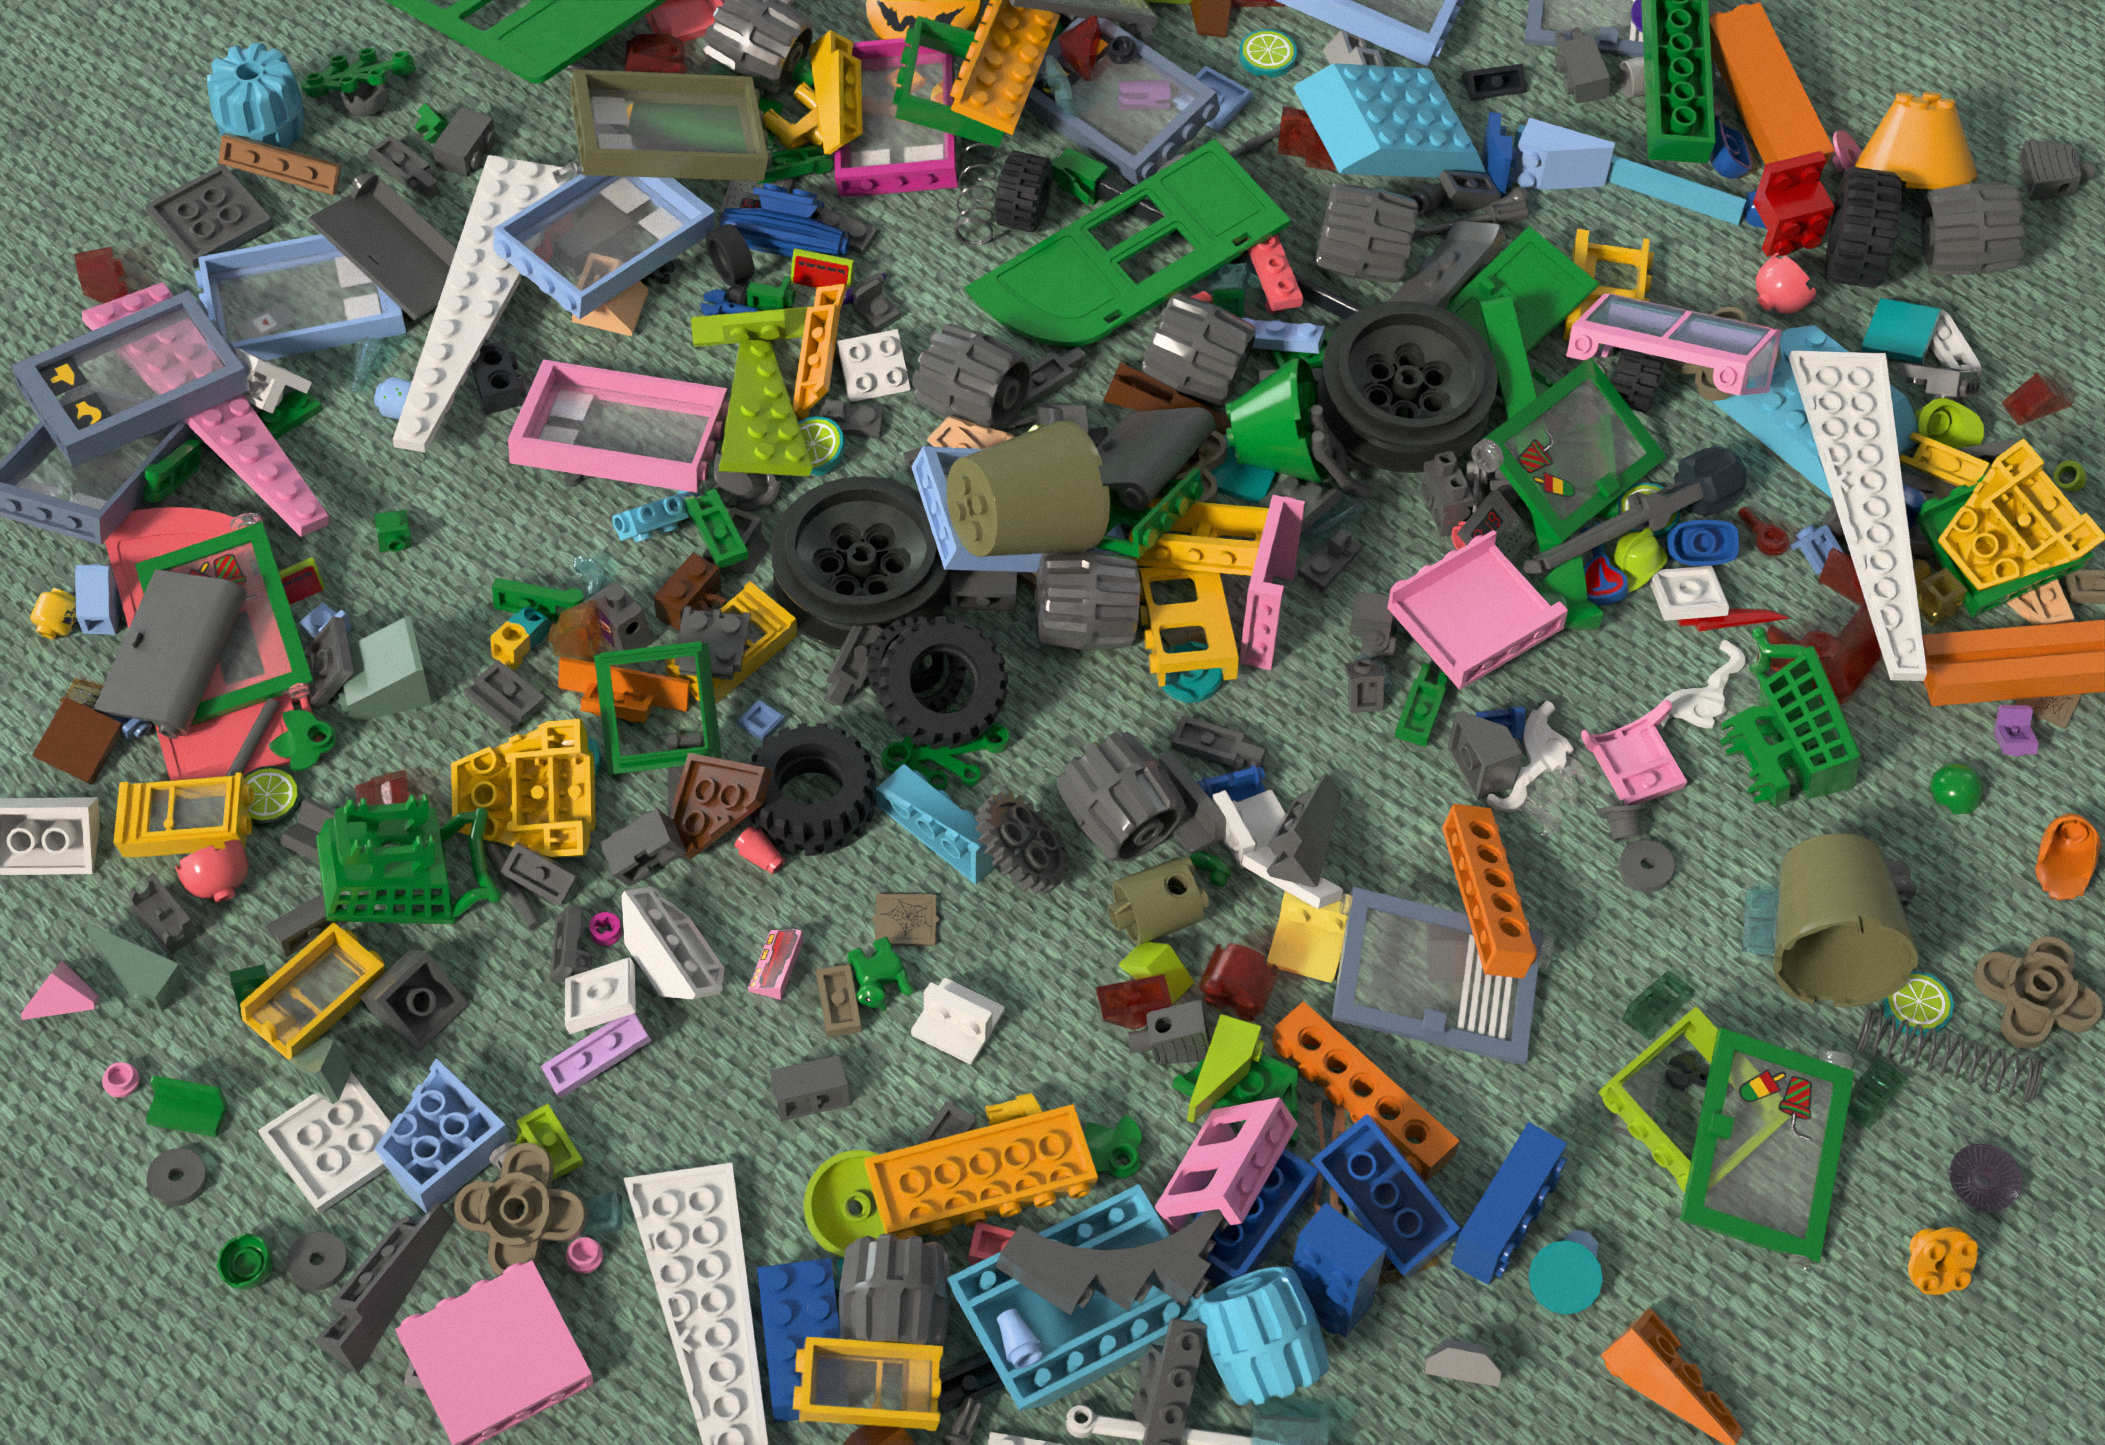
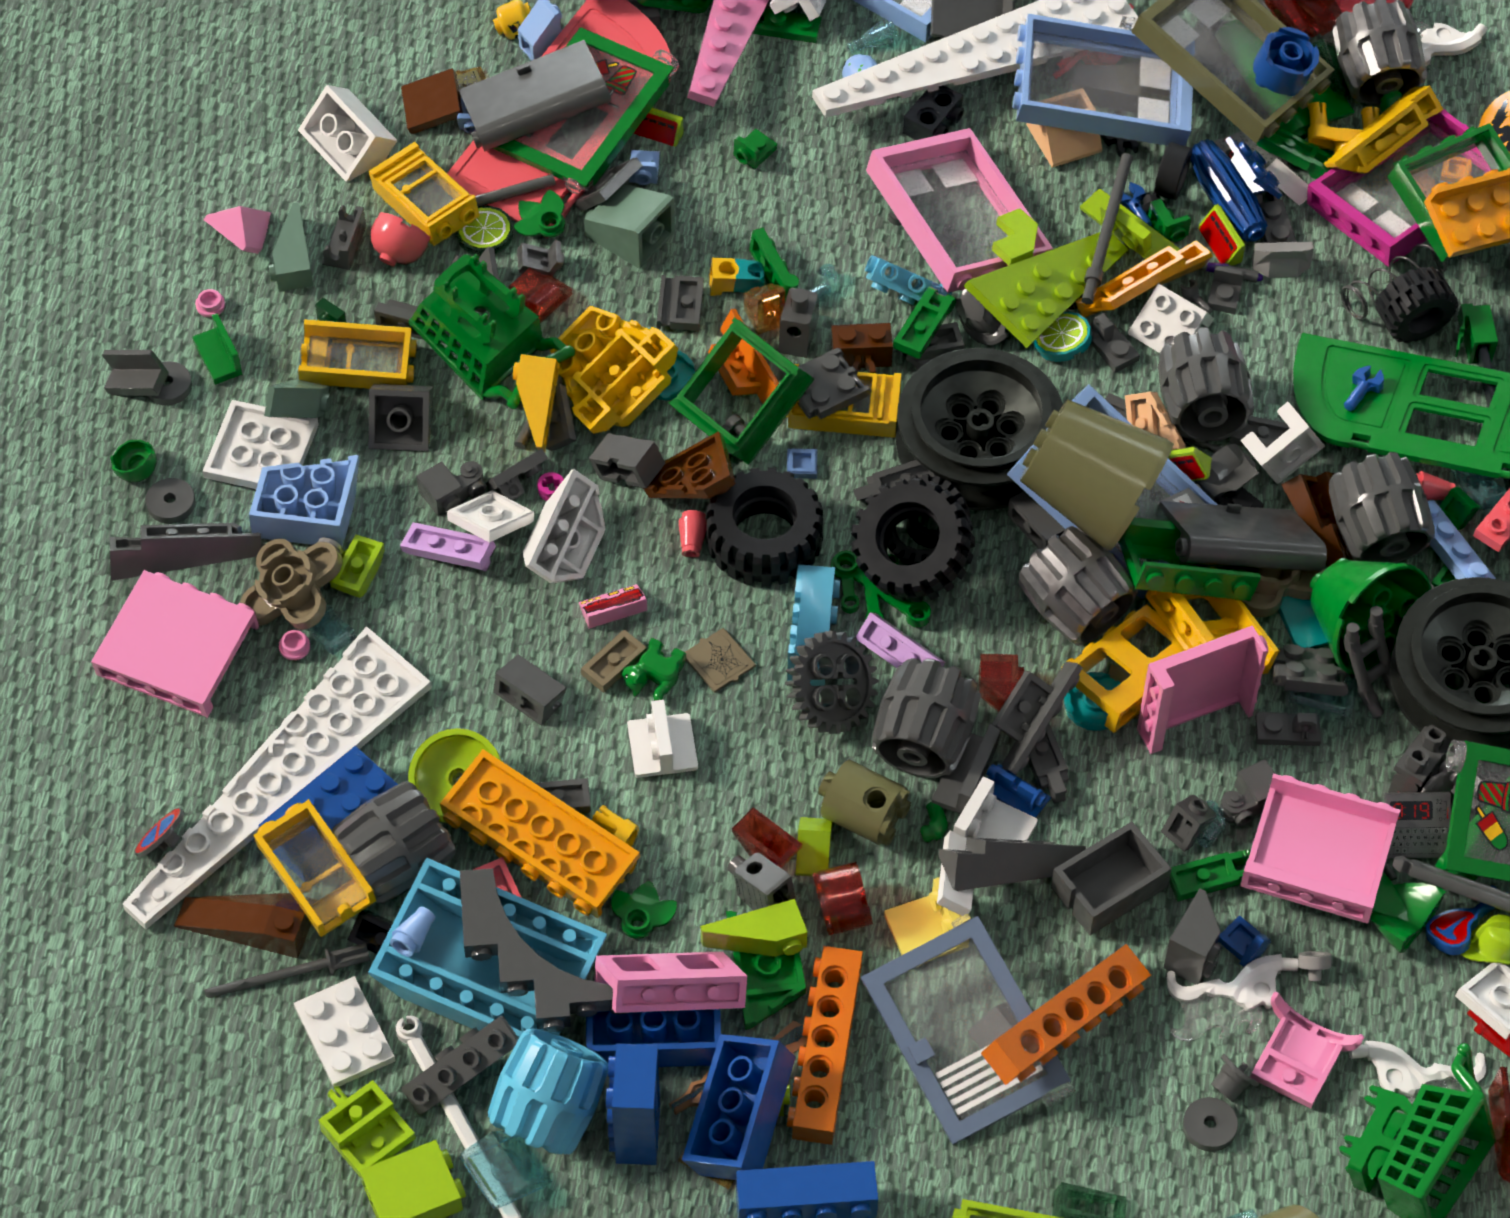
camera: 55 degrees right, 0 degrees up
(145, 1196) = (134, 373): none -> dark grey panel
(354, 769) = (540, 259): none -> flat silver bracket
(511, 865) = (537, 384): none -> yellow slope
(530, 1016) = (447, 491): none -> dark grey brick
(707, 405) = (1020, 239): none -> lime tile
(726, 96) = (1285, 61): none -> blue brick
(785, 376) = (1095, 273): none -> dark grey bar
(824, 190) = (1290, 183): none -> white sticker
(853, 330) = (1192, 295): none -> dark grey hand
(882, 248) = (1282, 258): none -> light grey slope
(1020, 774) = (891, 642): none -> lavender hinge
(1066, 280) = (1359, 377): none -> blue bar
(1082, 347) = (1287, 451): none -> white panel
(1119, 716) = (998, 678): none -> clear red slope
(1182, 716) = (1030, 710): none -> dark grey bracket
(1376, 774) = (1111, 878): none -> dark grey piece
(1561, 691) = (1315, 962): none -> light grey tile

